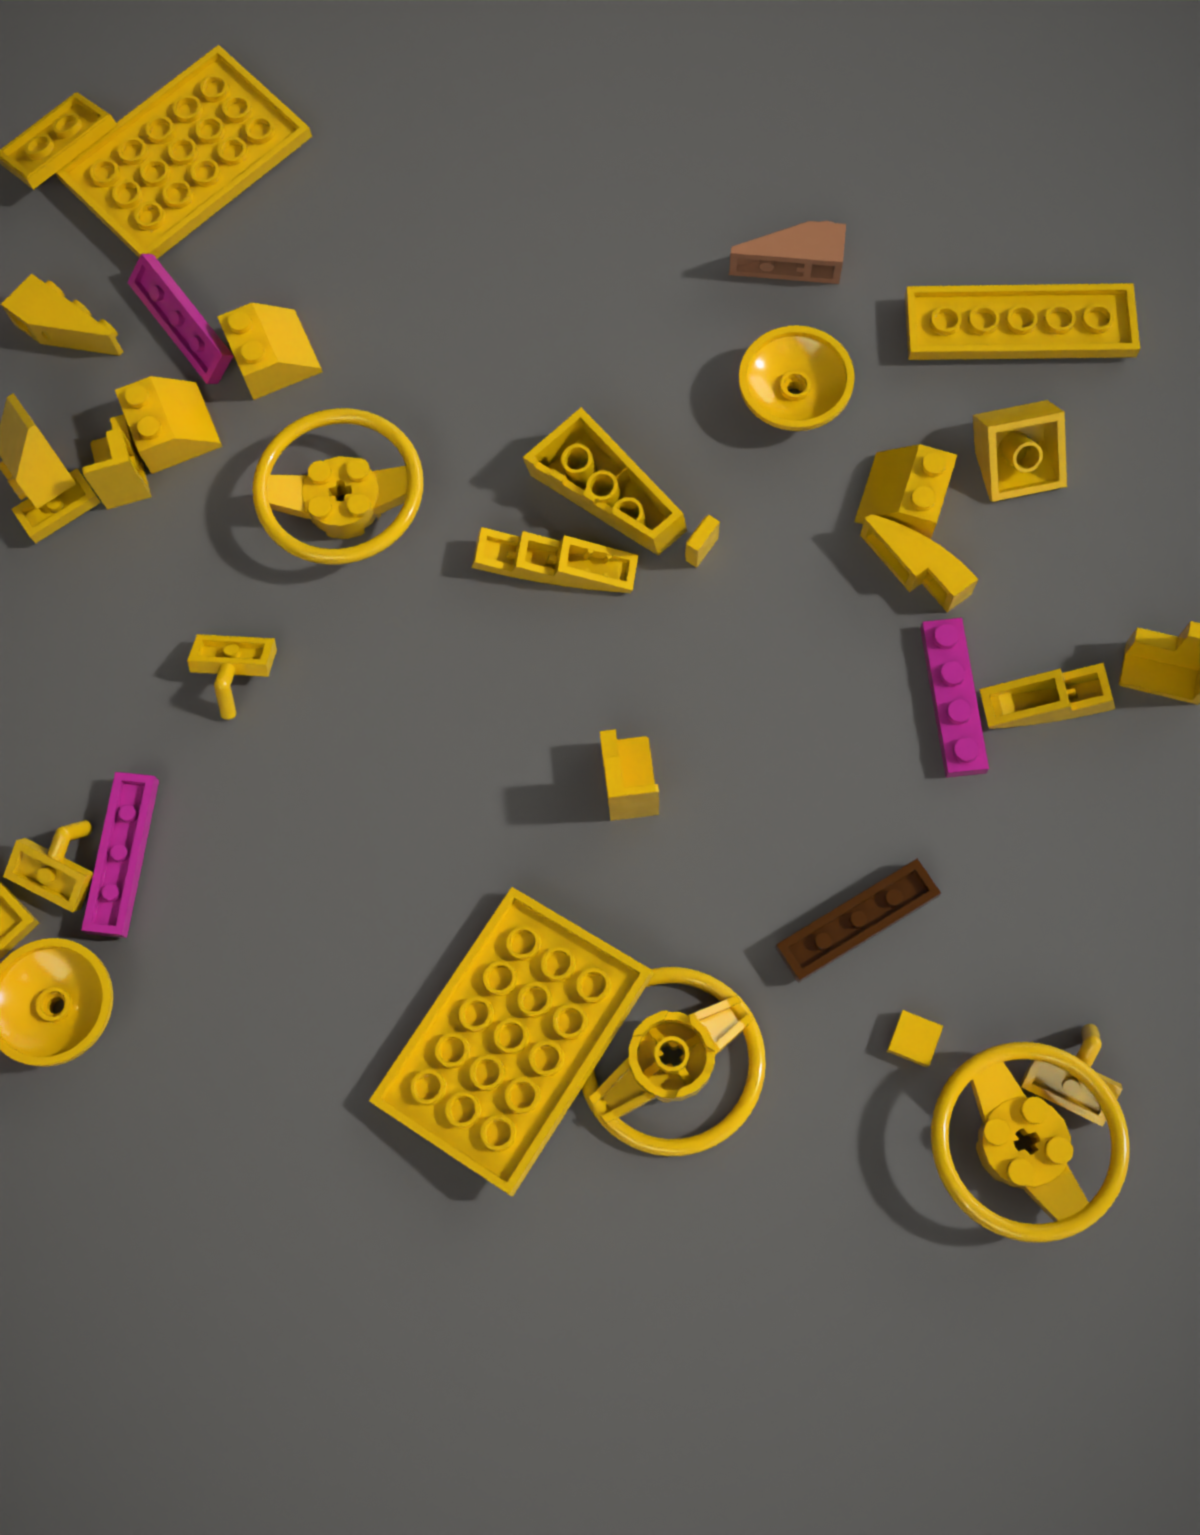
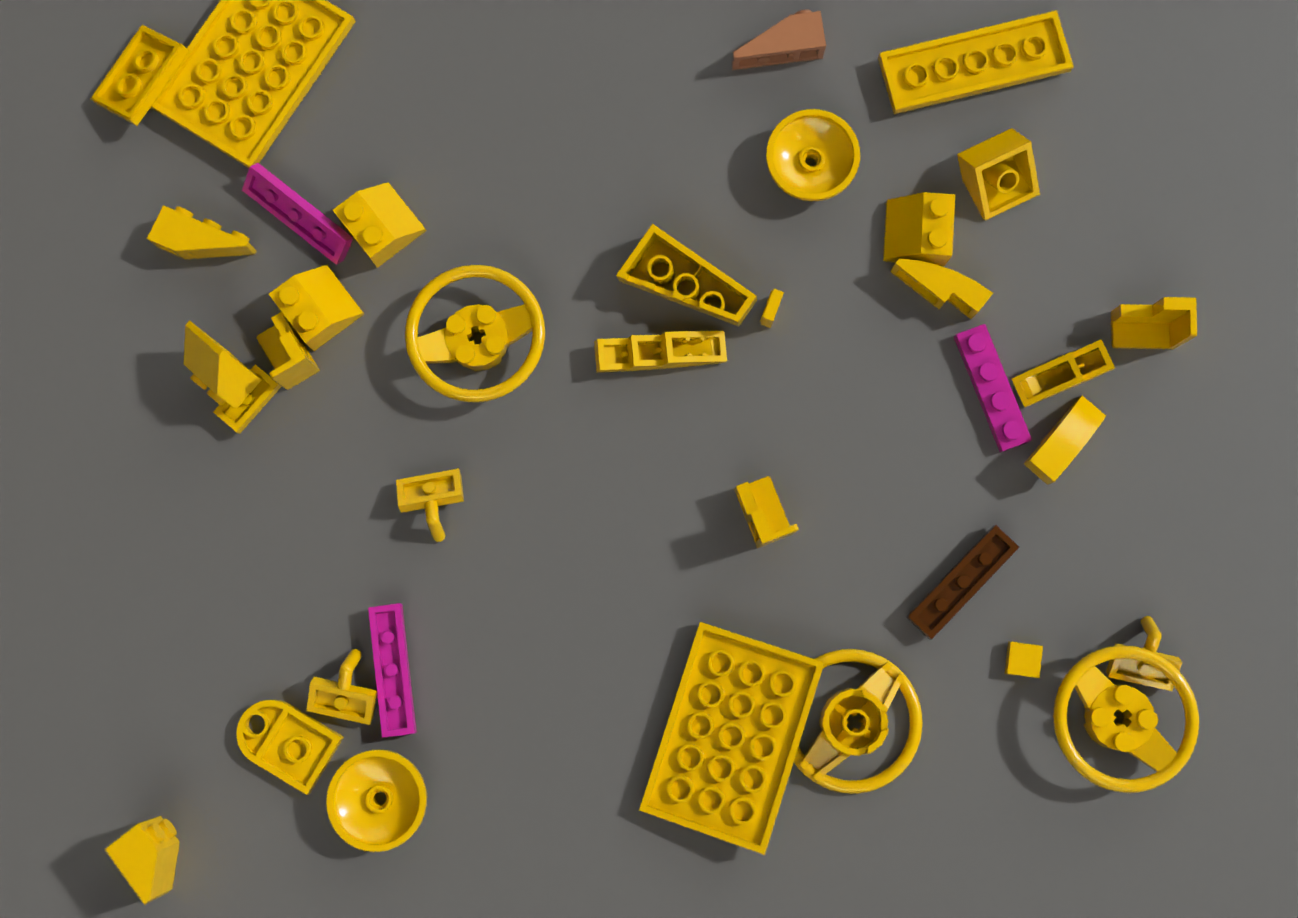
camera: 20 degrees left, 10 degrees up
(1030, 778) = (1065, 440): none -> yellow slope

